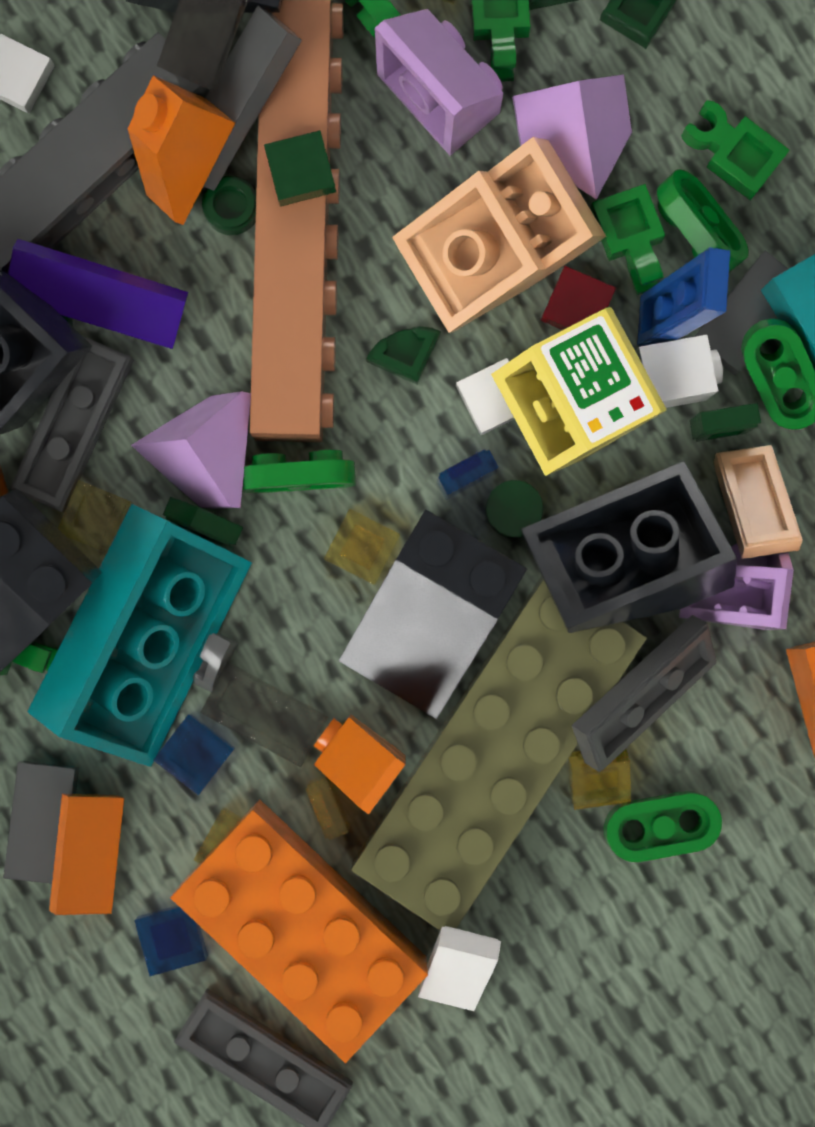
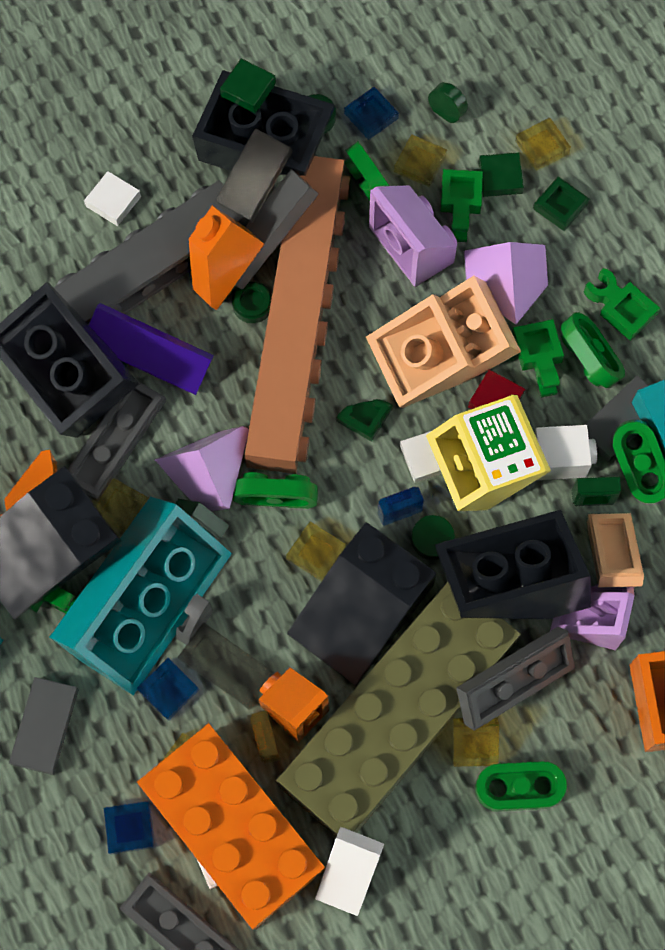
camera: 10 degrees right, 15 degrees down
(86, 854) = (75, 752): orange tile -> none
(300, 168) = (306, 278): dark green tile -> none
(685, 298) = (570, 393): blue tile -> none

